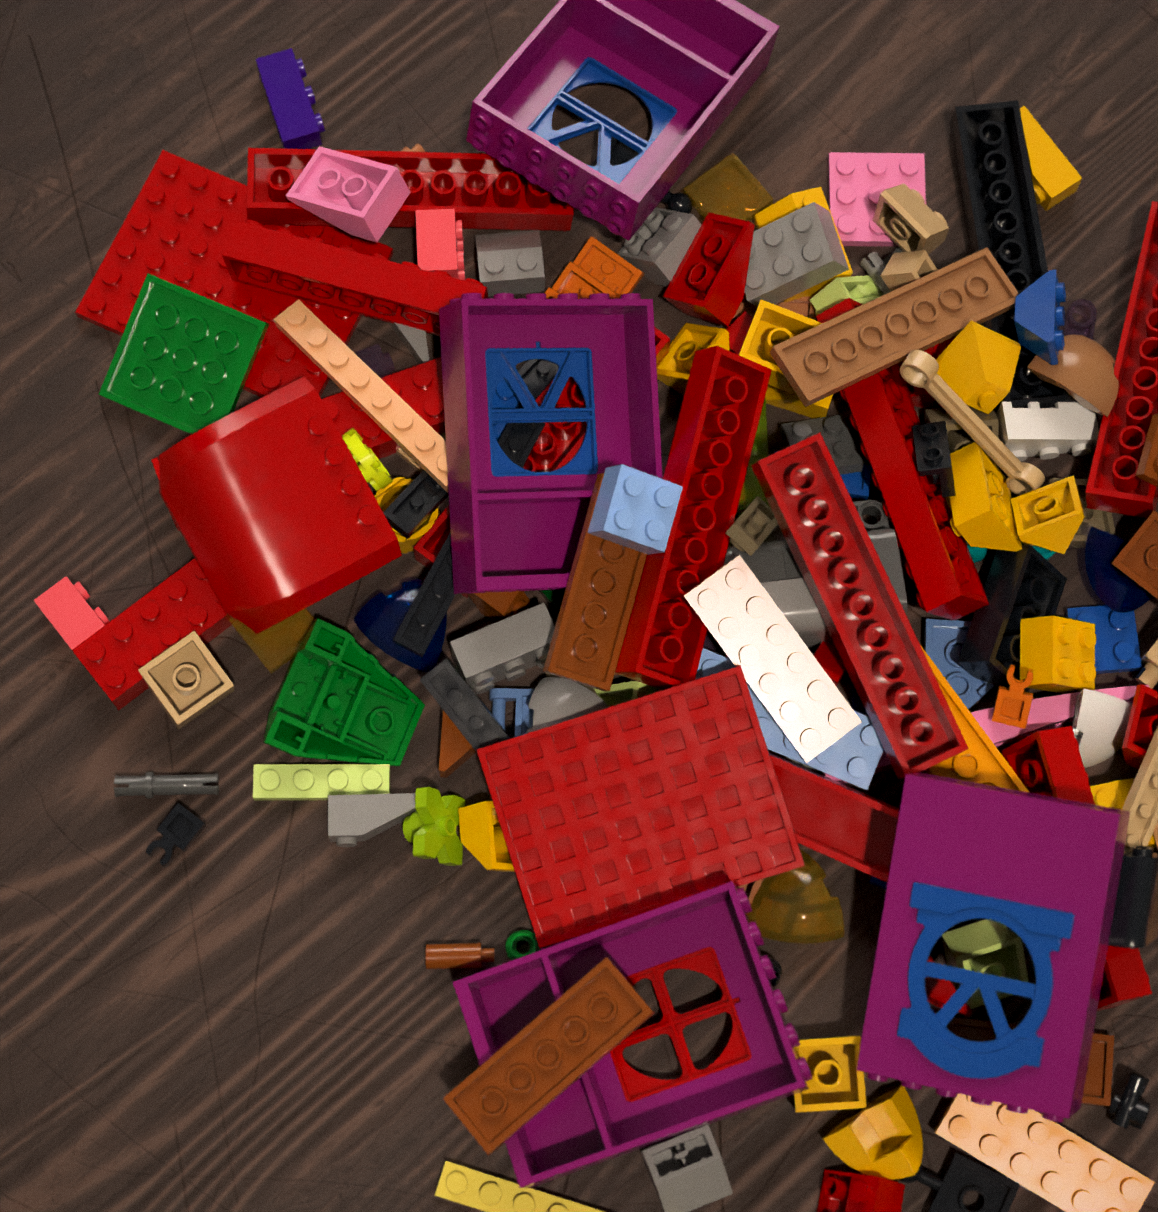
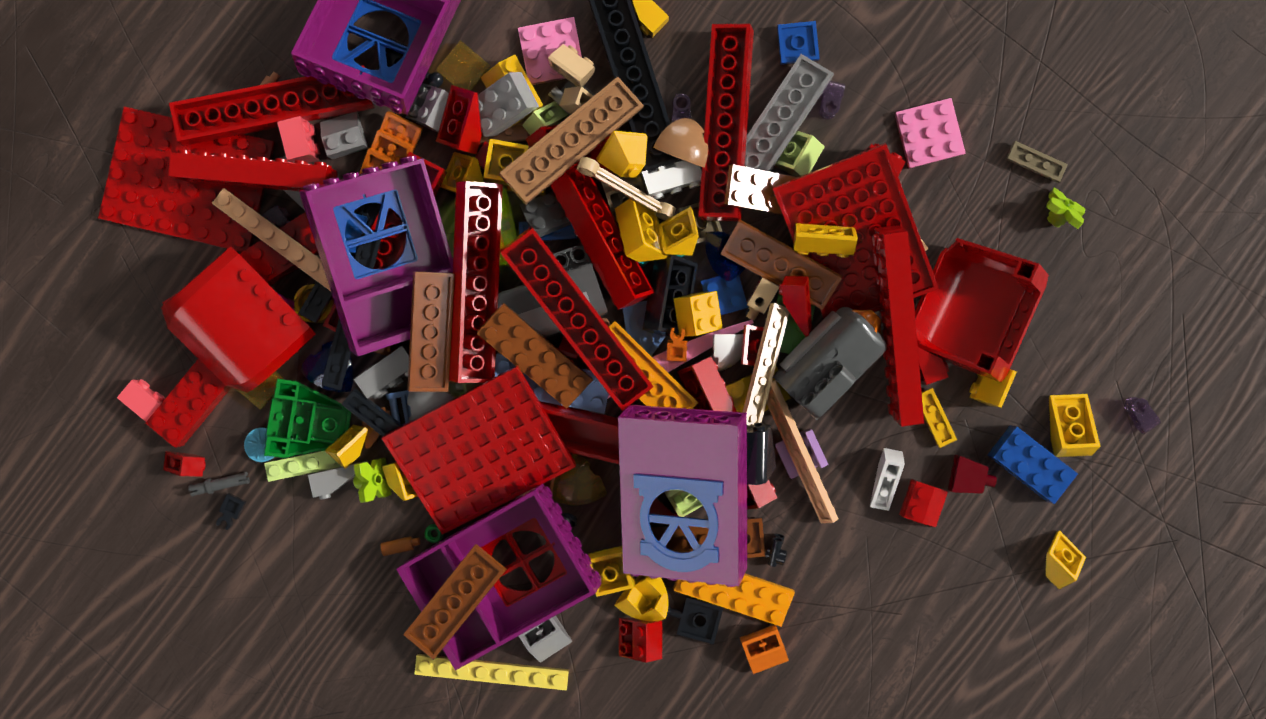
camera: 10 degrees left, 15 degrees up
(116, 737) = (184, 464): none -> red slope
(182, 357) = (166, 236): green plate -> none
(186, 680) = (213, 426): tan slope -> none
(246, 734) = (255, 445): none -> medium azure wheel
(290, 100) = (191, 60): dark purple brick -> none
(350, 192) = (234, 120): bright pink slope -> none
(367, 461) = (283, 282): neon yellow plate -> none
(410, 760) = (348, 446): none -> yellow slope
(635, 509) = (438, 290): light blue brick -> none
(752, 526) = (507, 284): dark tan plate -> none
(934, 455) = (608, 213): black bracket -> none
(1040, 315) = (655, 115): blue slope -> none

